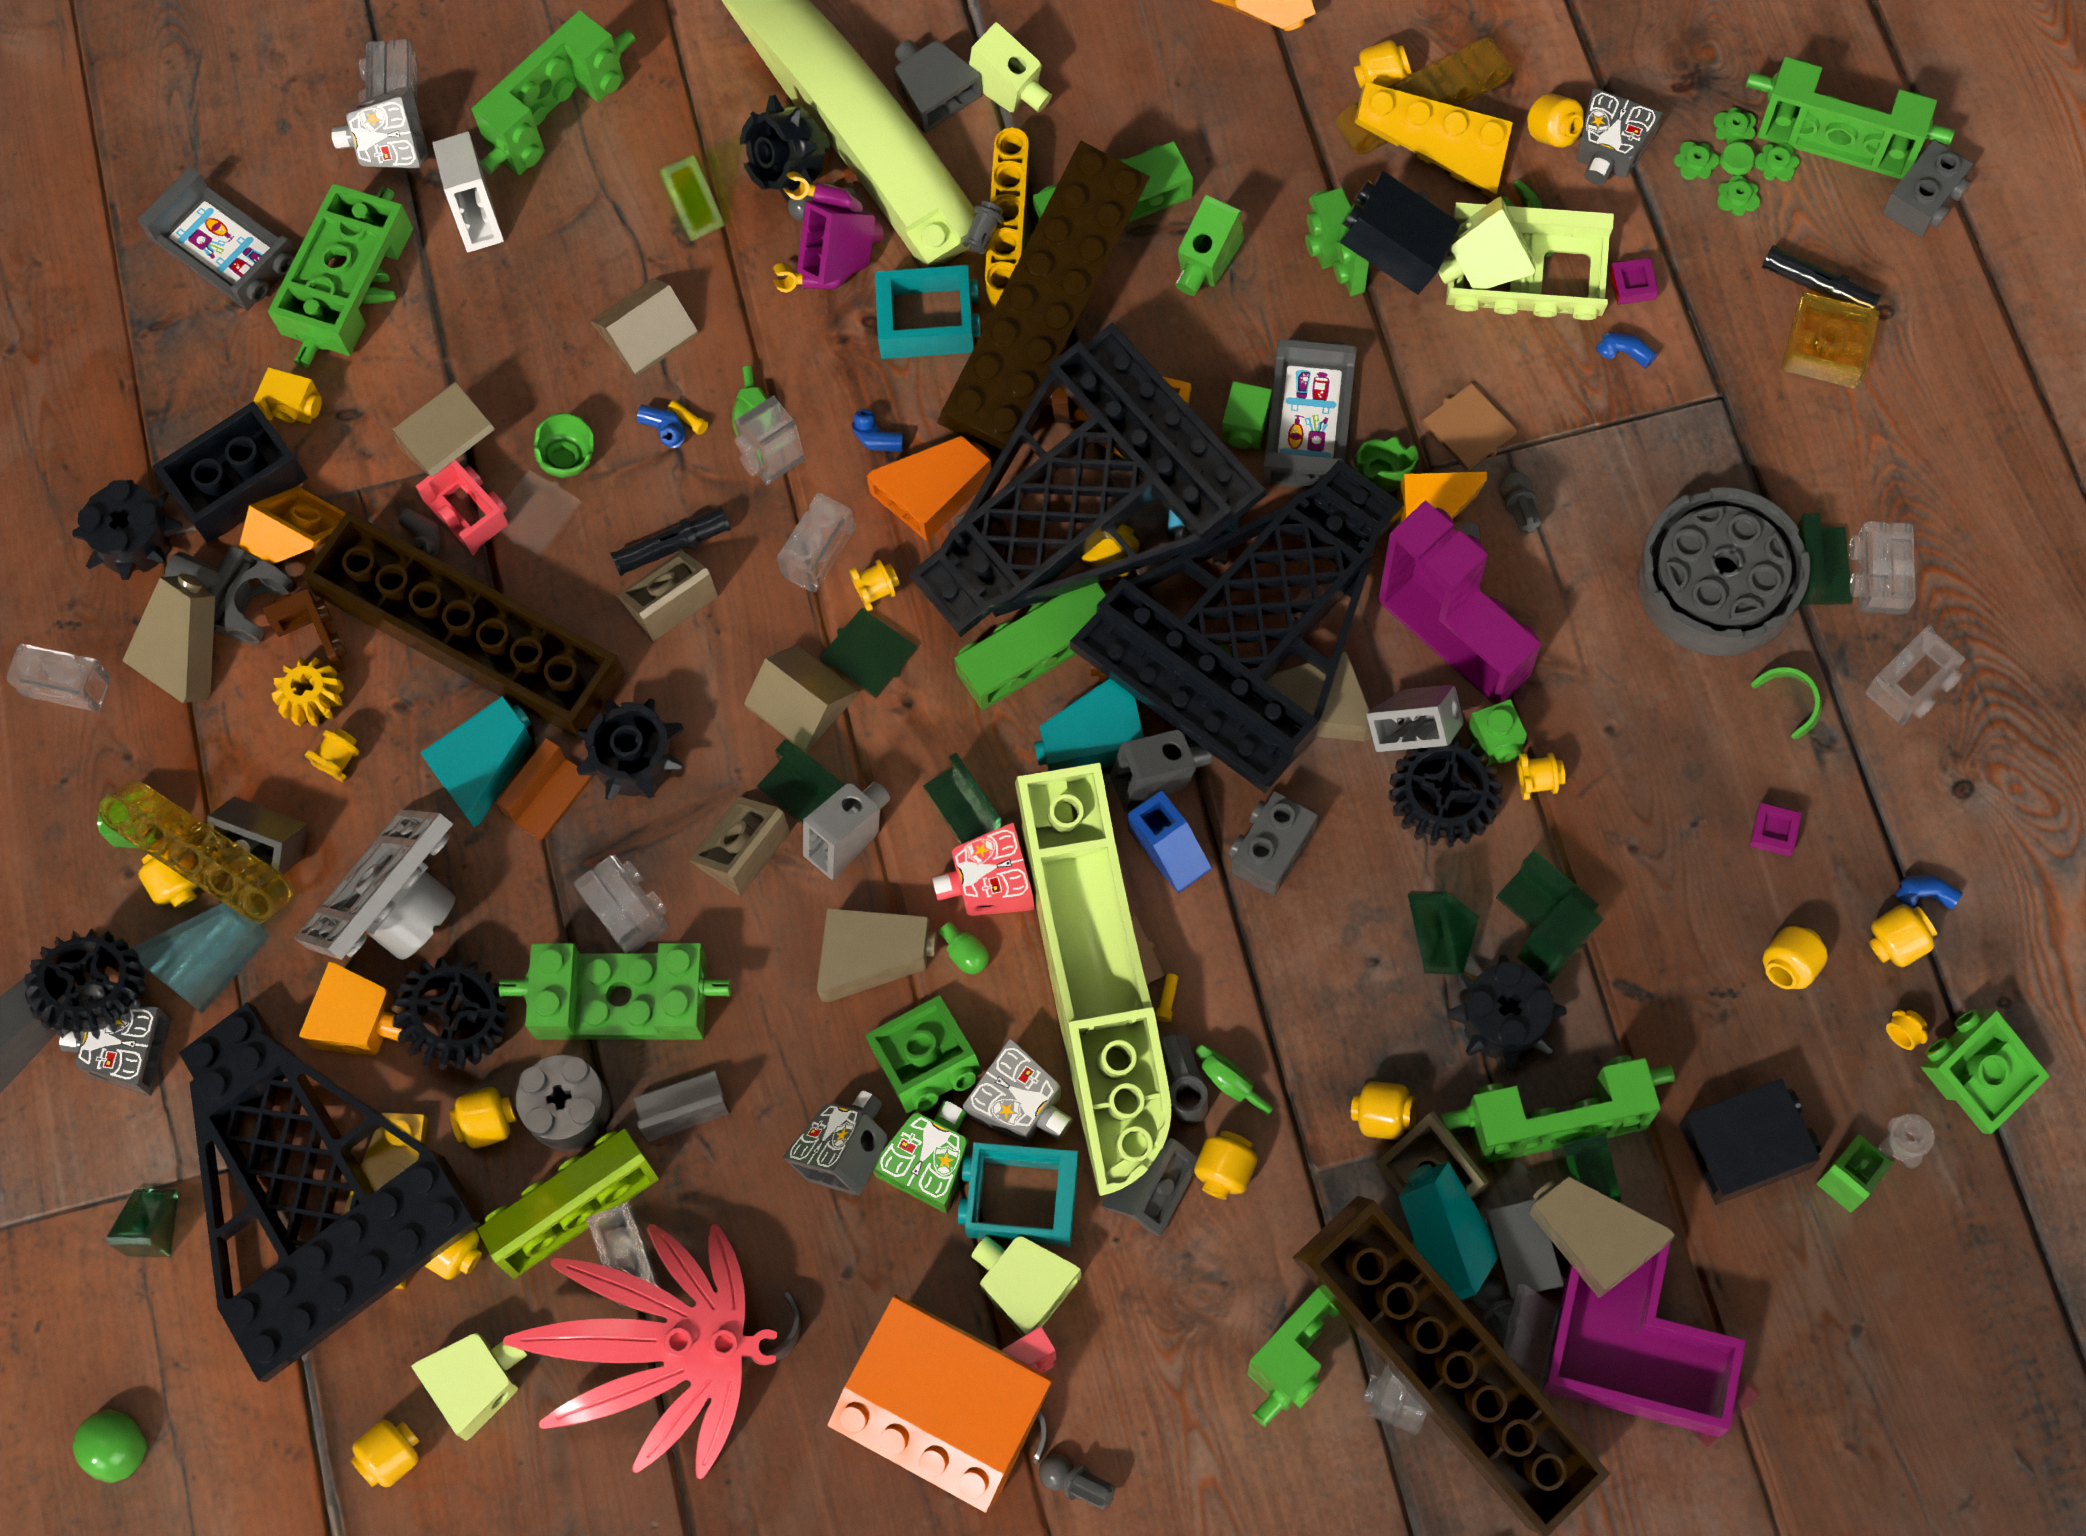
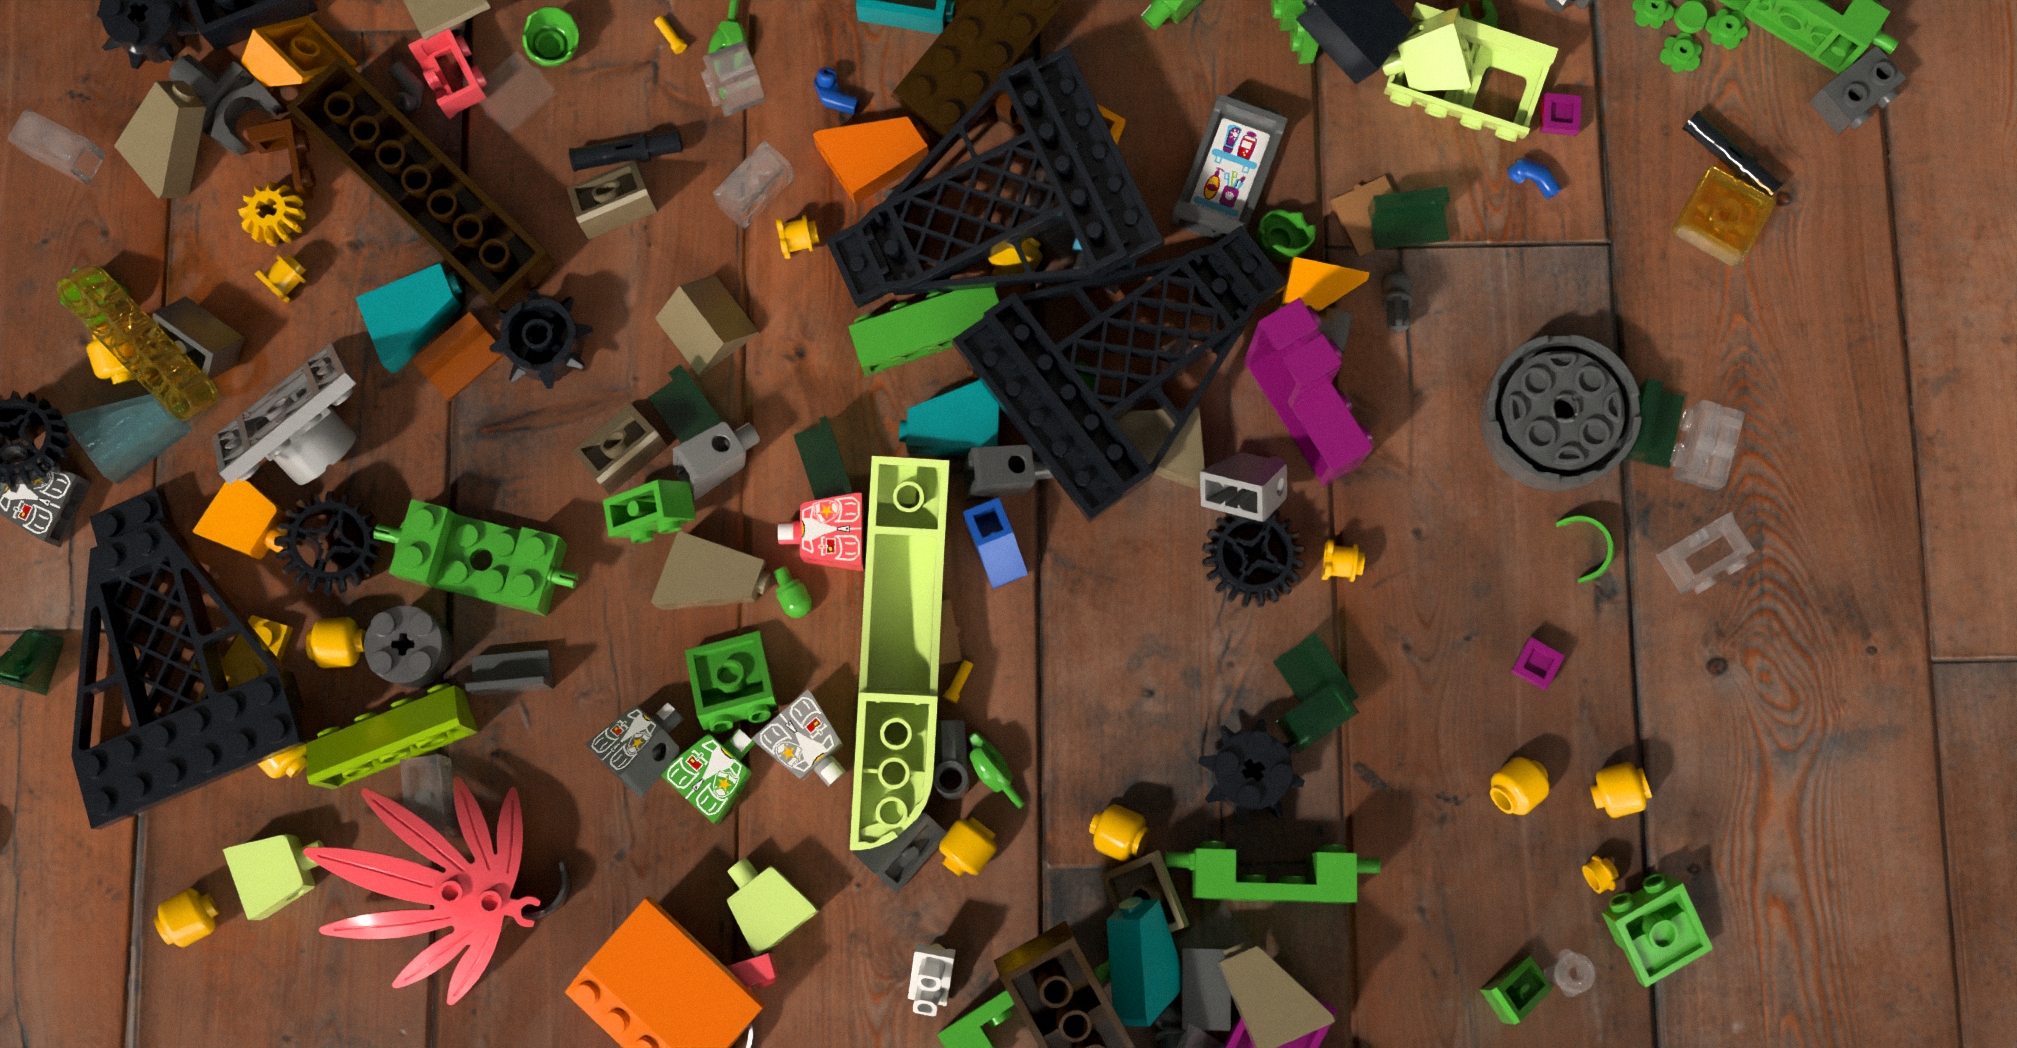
camera: 10 degrees right, 10 degrees up
(621, 904) = (502, 479): clear brick -> none
(666, 422) = (649, 34): blue arm -> none
(791, 894) = (649, 510): none -> bright green brick
(868, 653) = (777, 298): clear green piece -> none
(974, 1170) = (821, 841): teal window -> none
(1223, 1312) = (930, 978): none -> white hips
(1246, 415) = (1171, 158): bright green brick -> none
(1273, 842) = (1087, 564): dark grey brick -> none
(1442, 930) = (1214, 686): clear green slope -> none
(1497, 732) = (1314, 514): bright green brick -> none
(1509, 416) = (1409, 218): none -> clear green panel
(1589, 1163) = (1281, 932): clear green slope -> none
(1750, 1141) = (1432, 940): black brick -> none
(1927, 886) = (1656, 748): blue arm -> none

